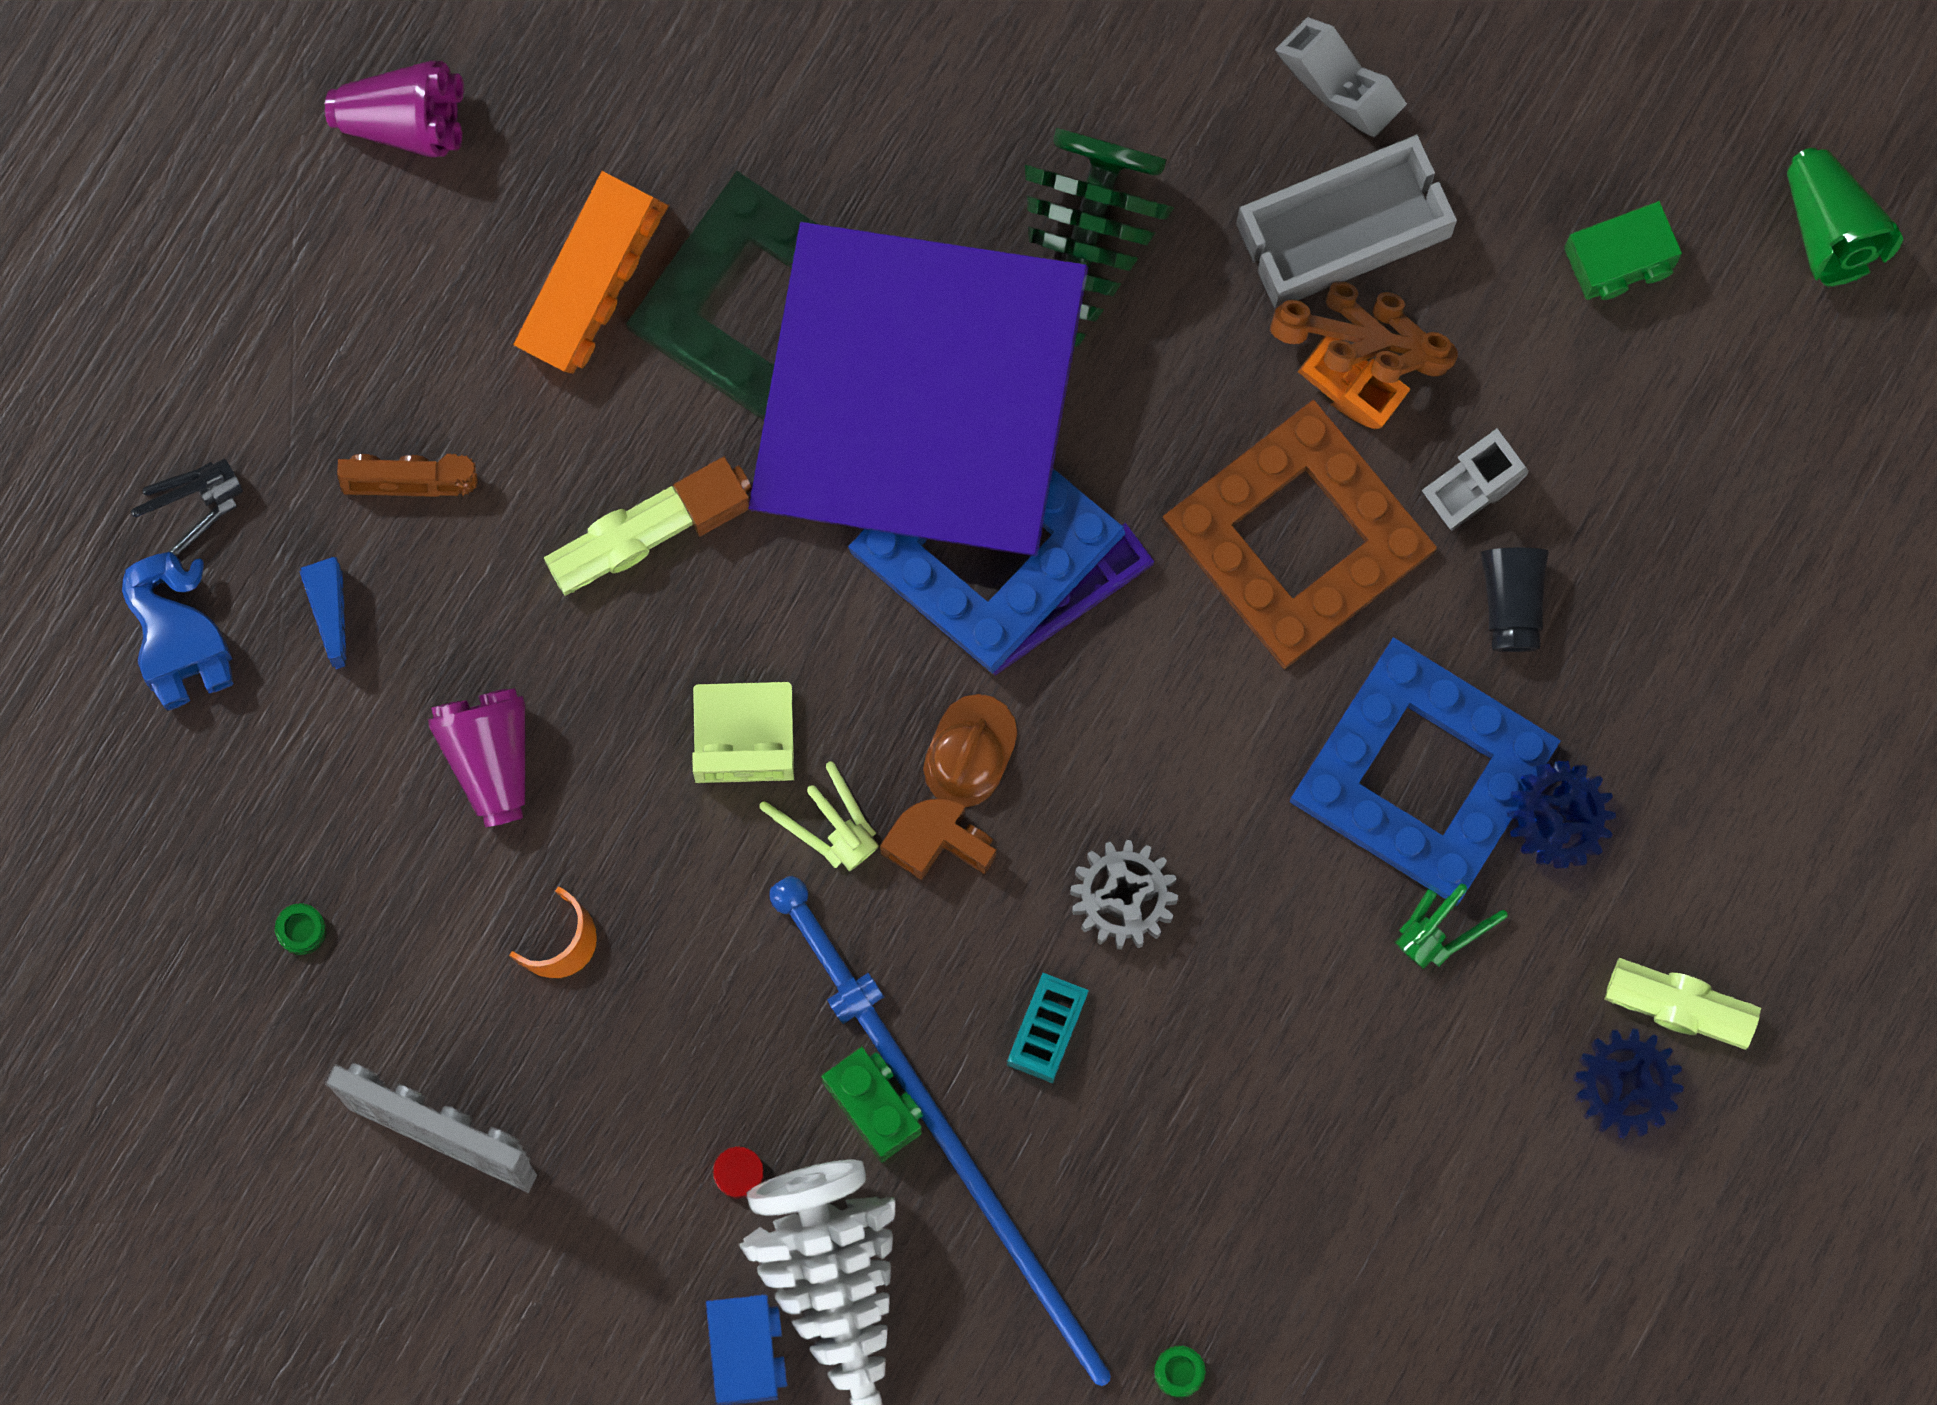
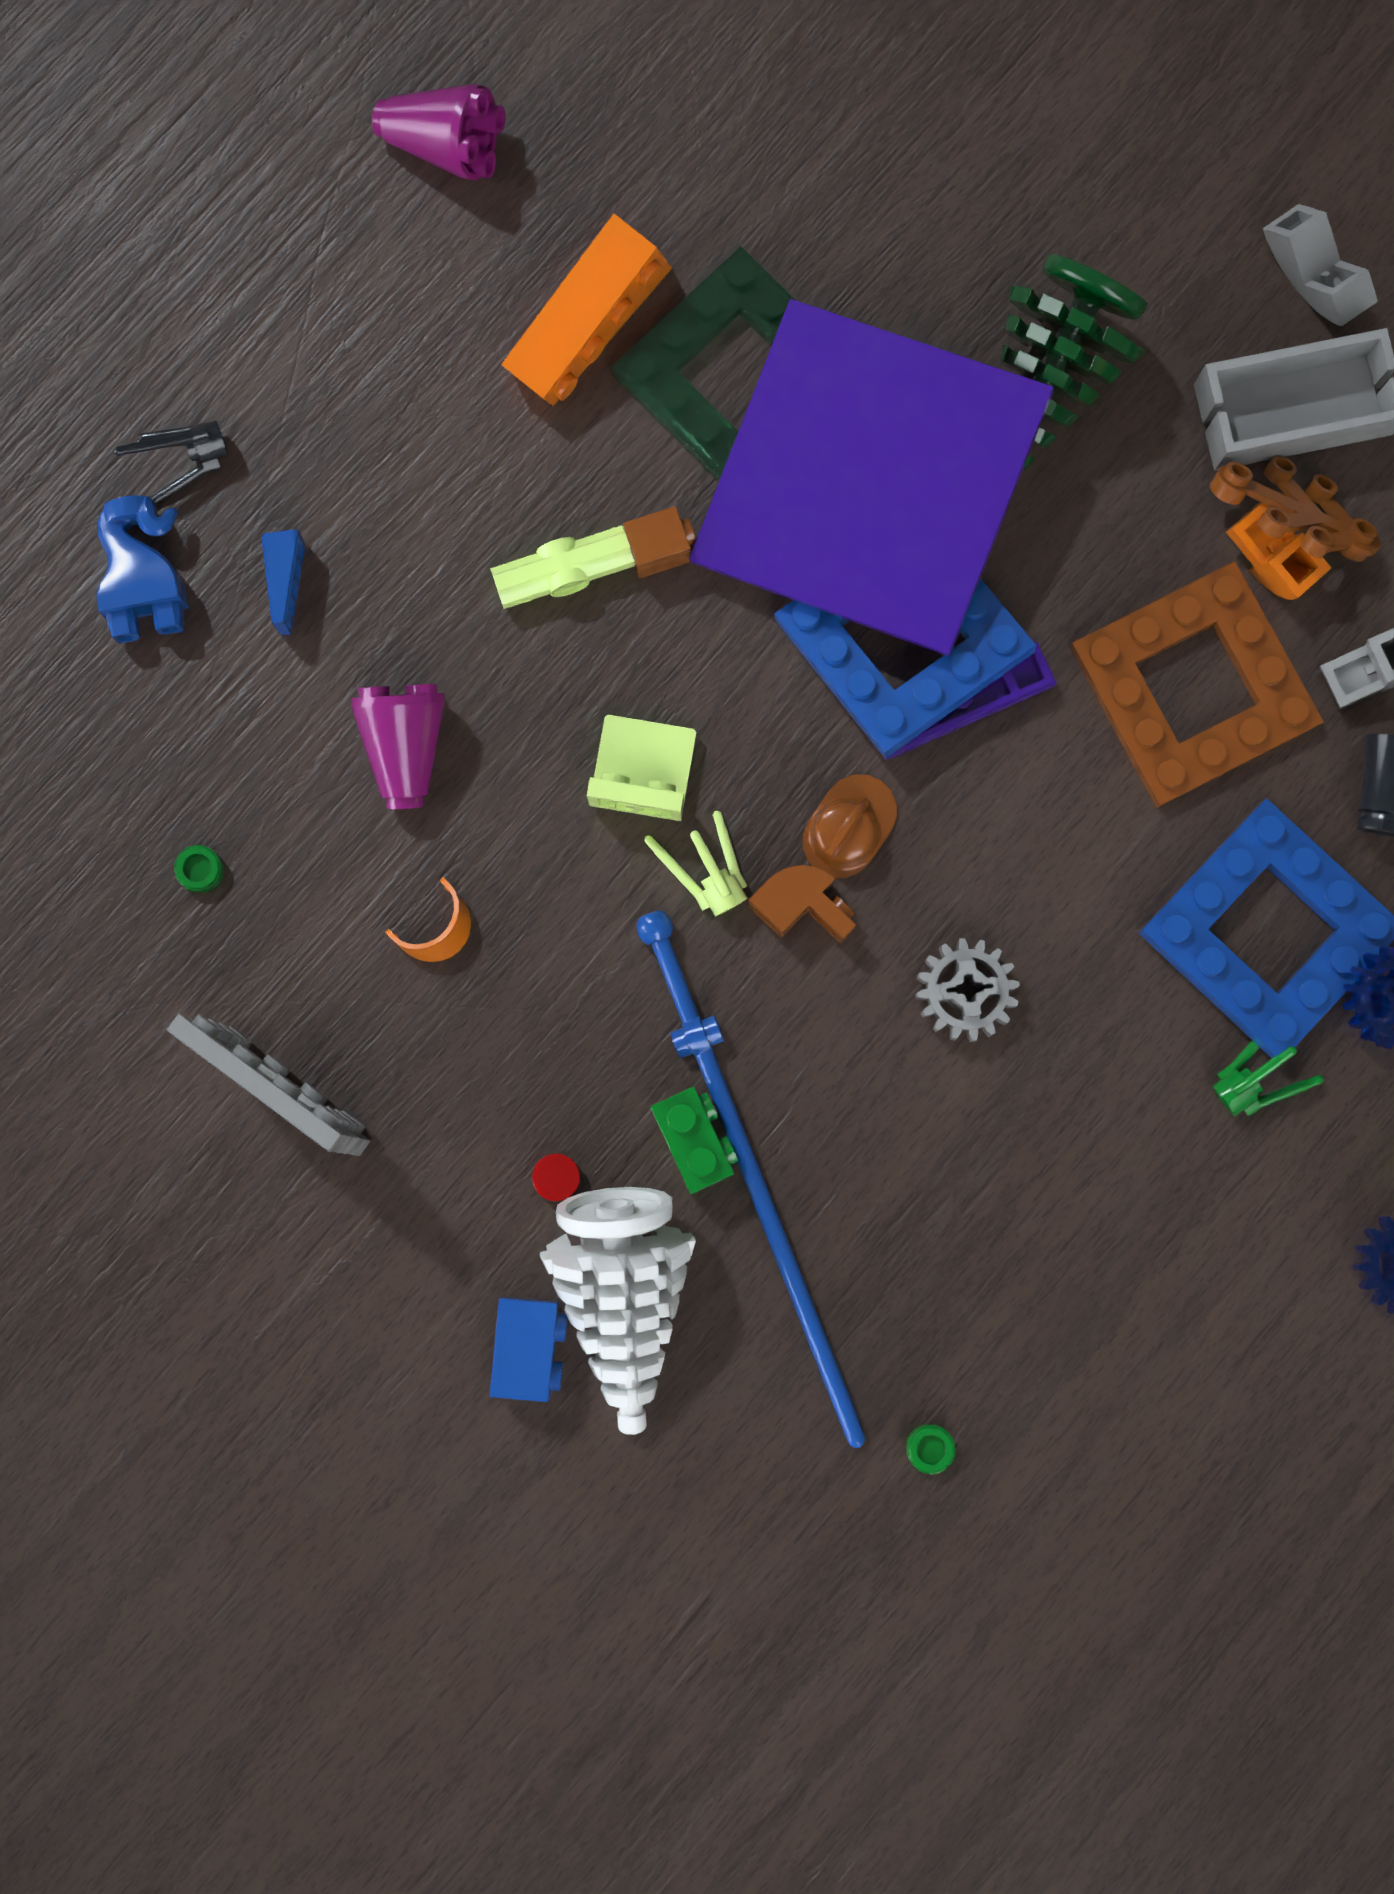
camera: 15 degrees right, 5 degrees up
(407, 476) = (380, 469): dark orange hinge -> none
(1031, 1064) = (848, 1131): teal slope -> none

